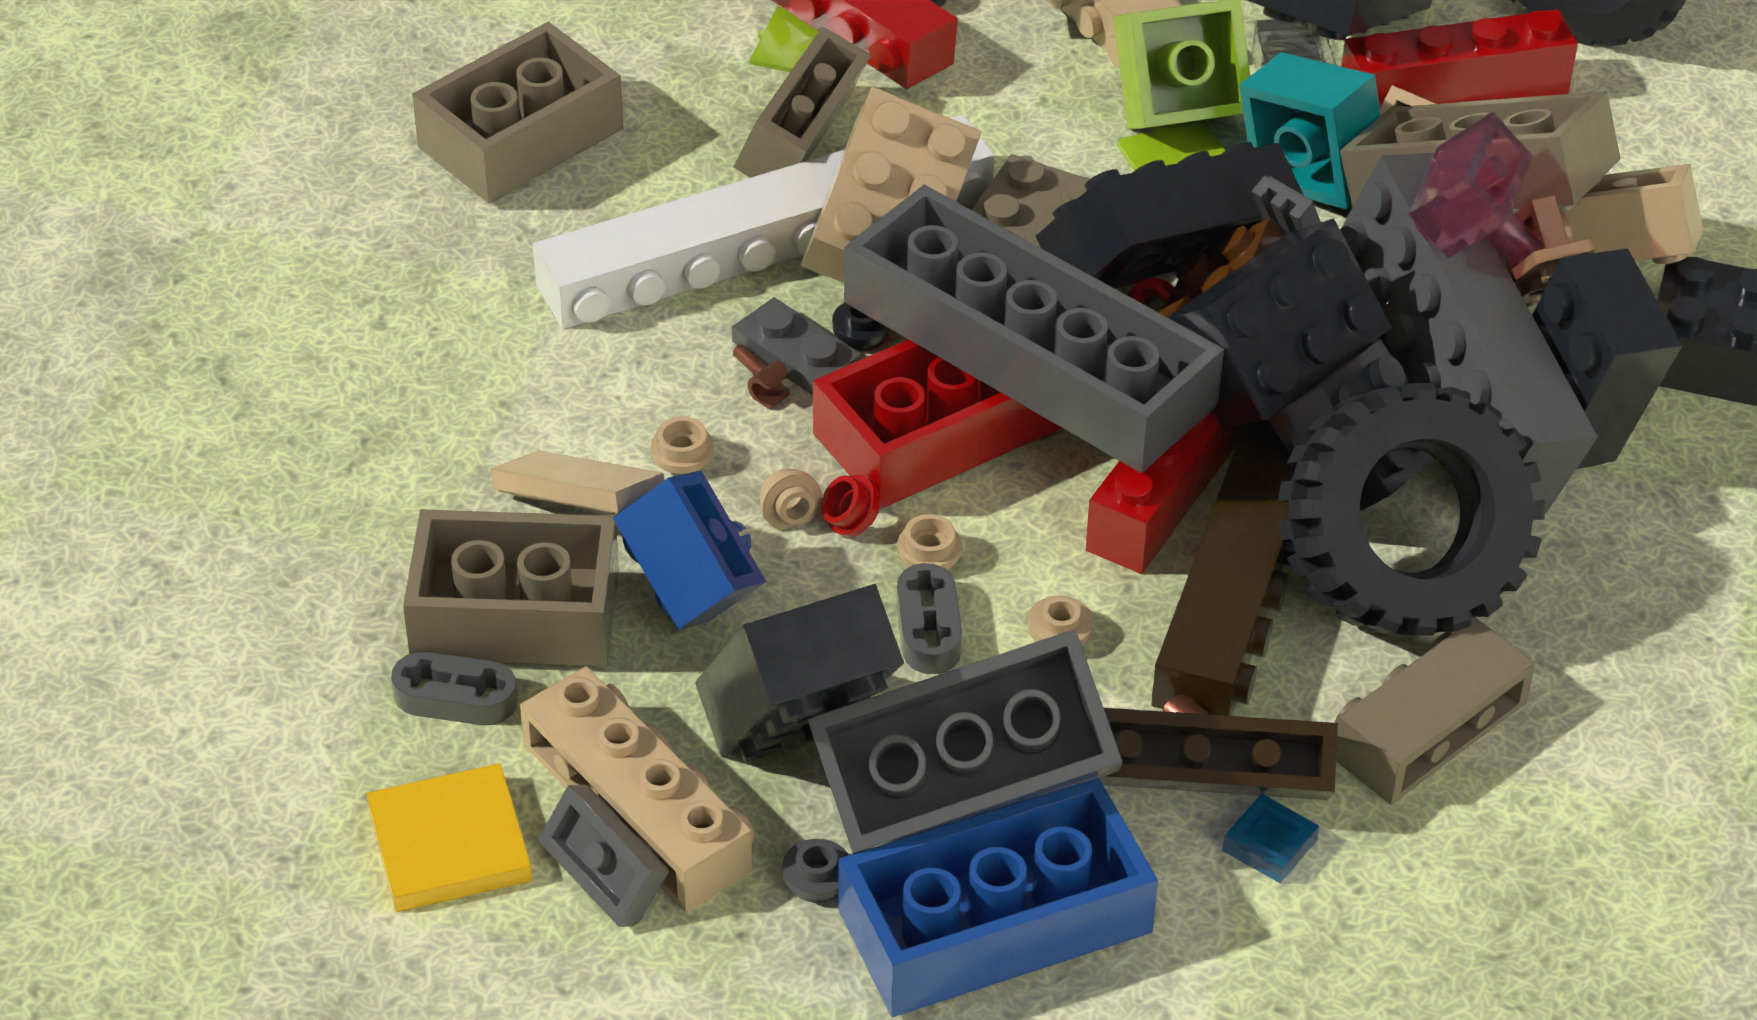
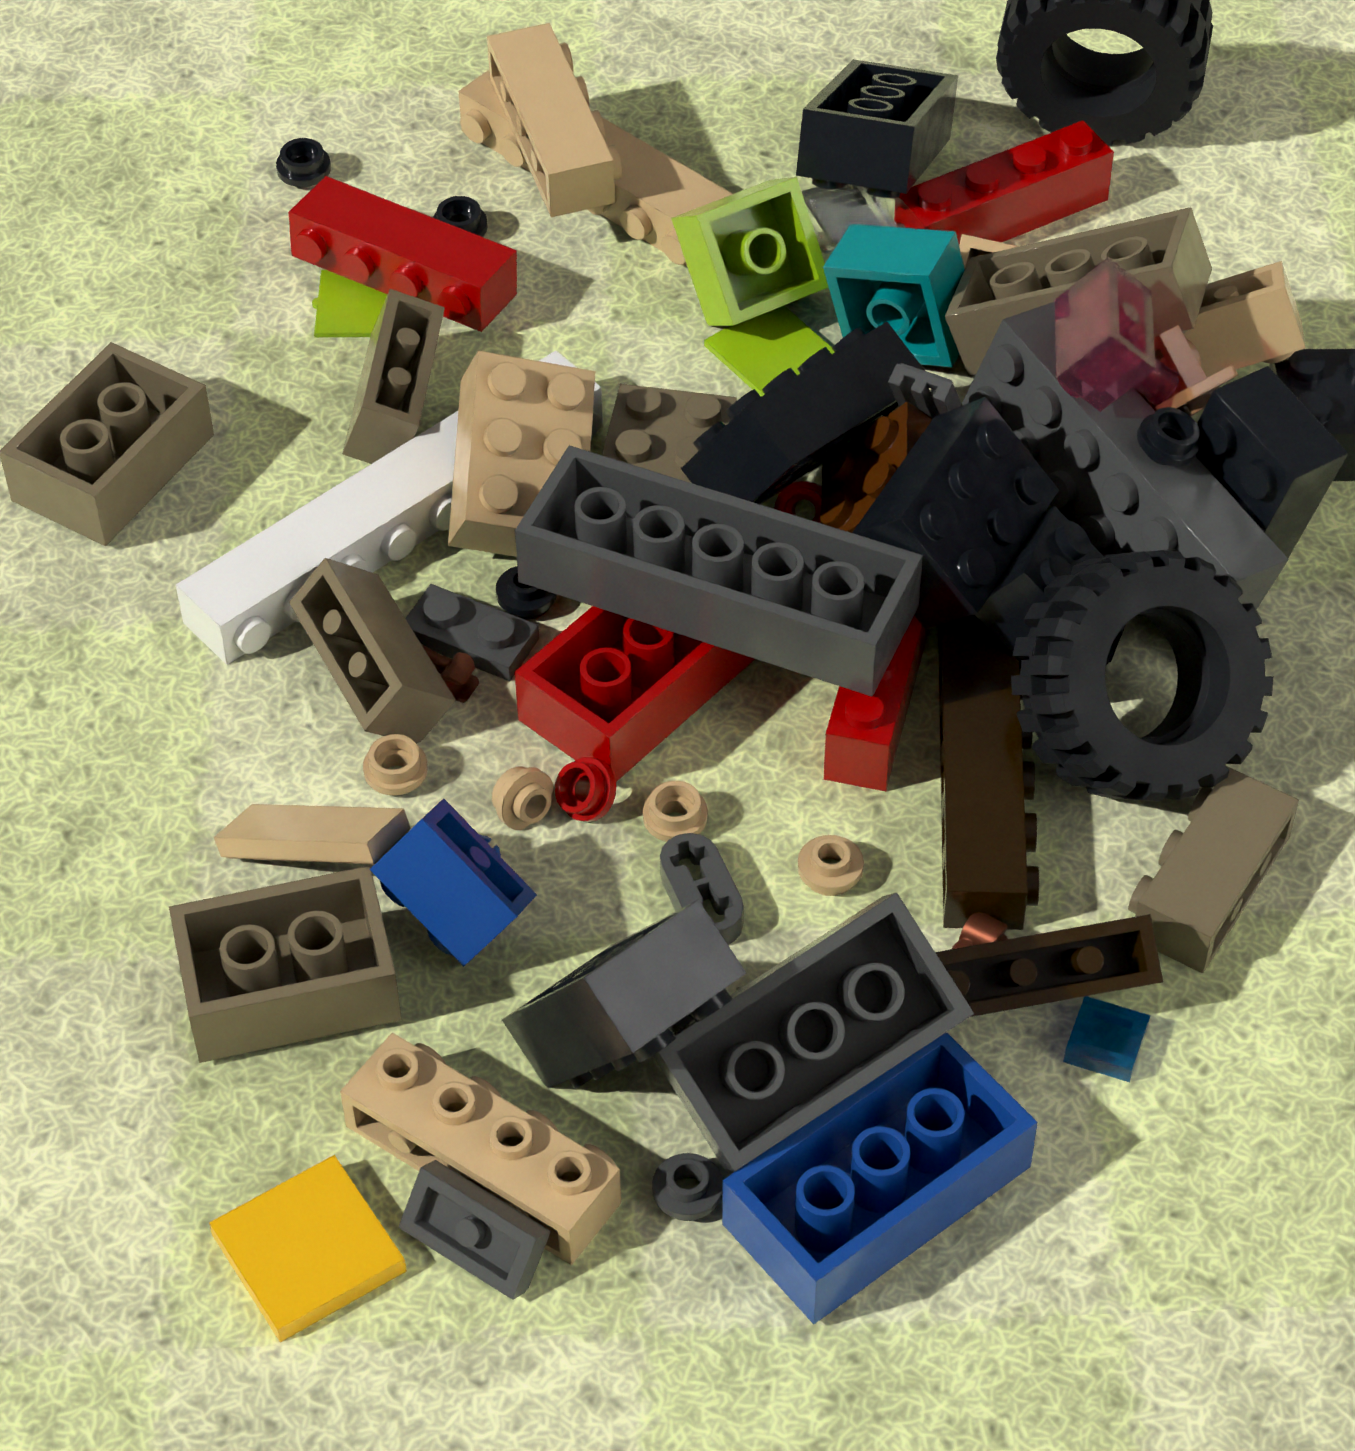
camera: 15 degrees left, 5 degrees up
(454, 688) = (257, 1084): dark grey beam -> none
(693, 340) = (371, 651): none -> dark tan brick
(1509, 296) = (1169, 437): none -> black plate

